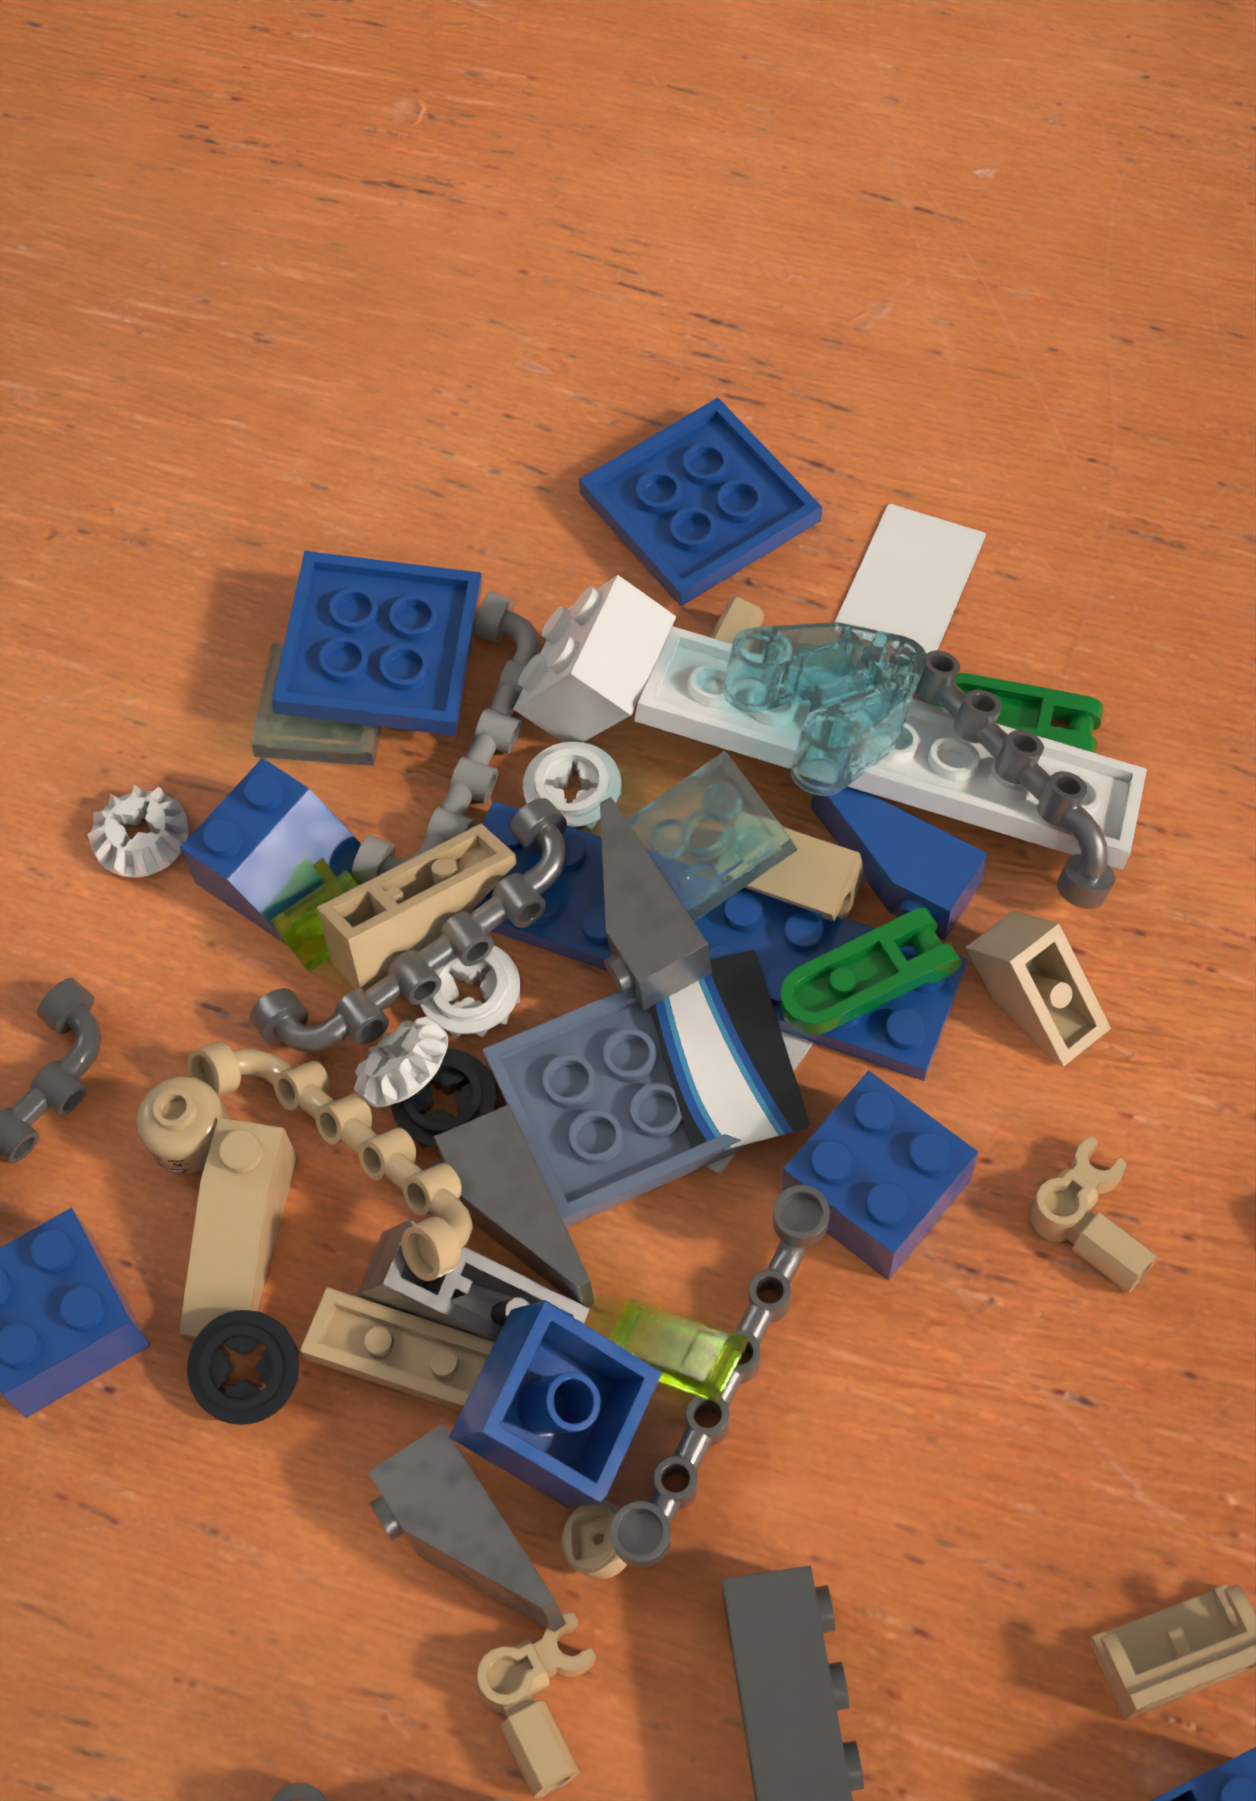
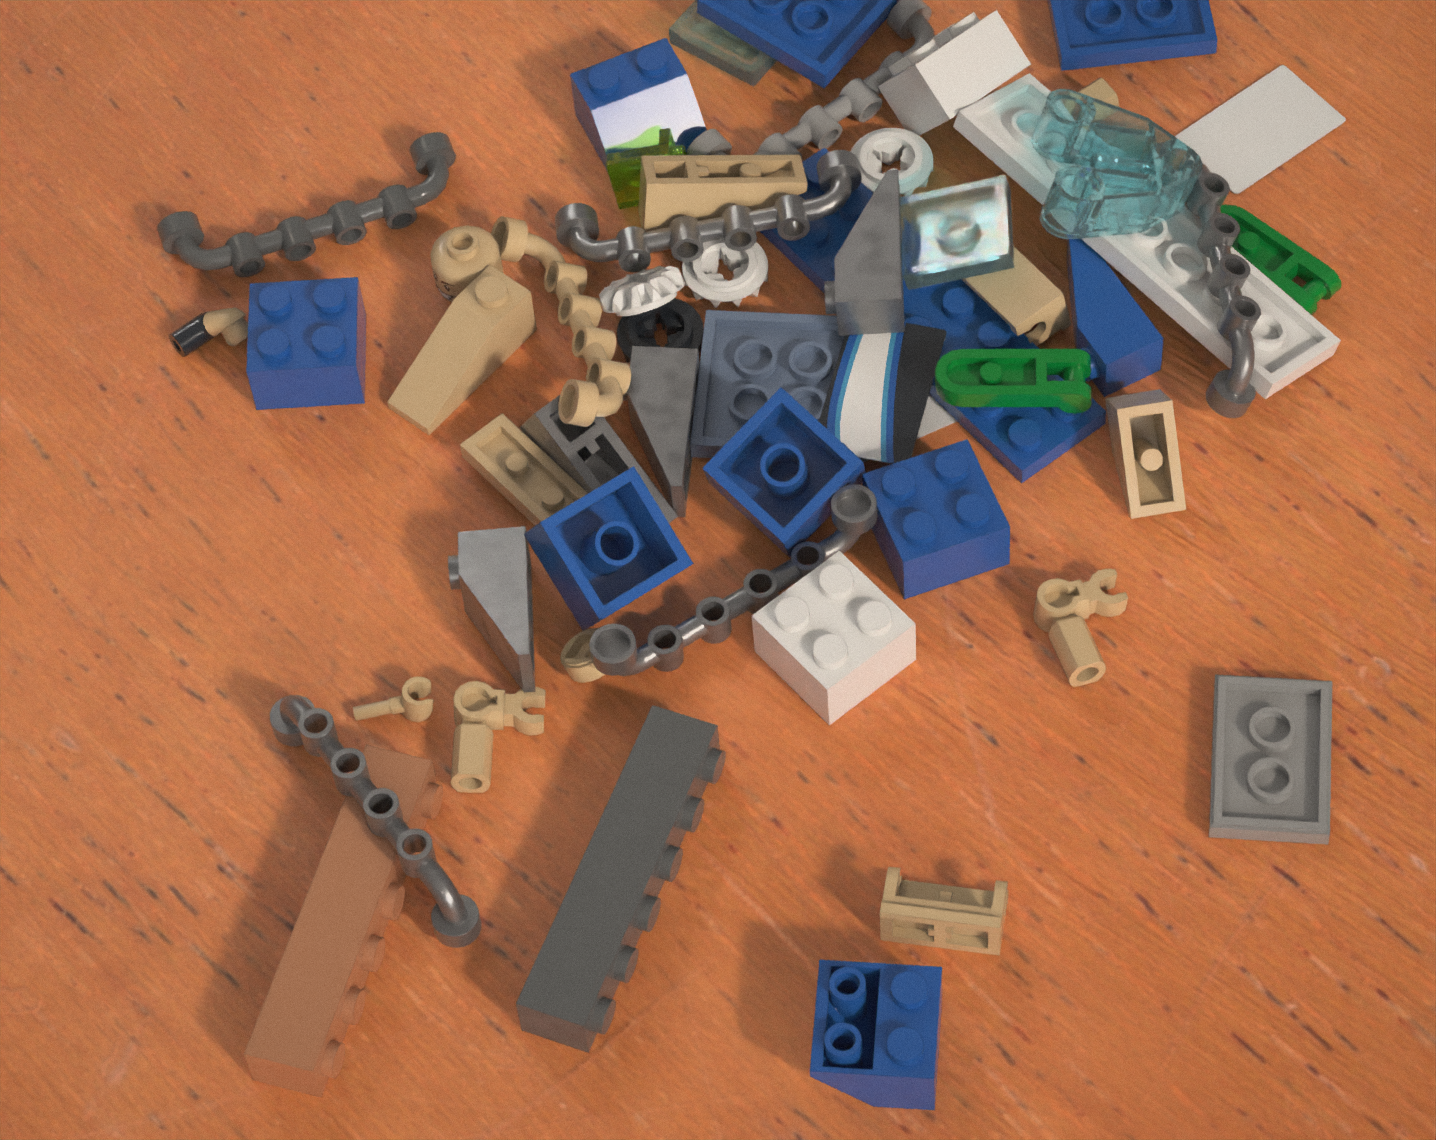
camera: 30 degrees right, 5 degrees down
(146, 852) = (549, 74): white gear -> none
(211, 1366) = (396, 430): black gear -> none
(407, 1722) = (412, 709): none -> tan hand
(682, 1348) = (719, 562): clear neon green tile -> none
(697, 1207) = (783, 471): none -> blue brick
(859, 1375) = (834, 637): none -> white brick

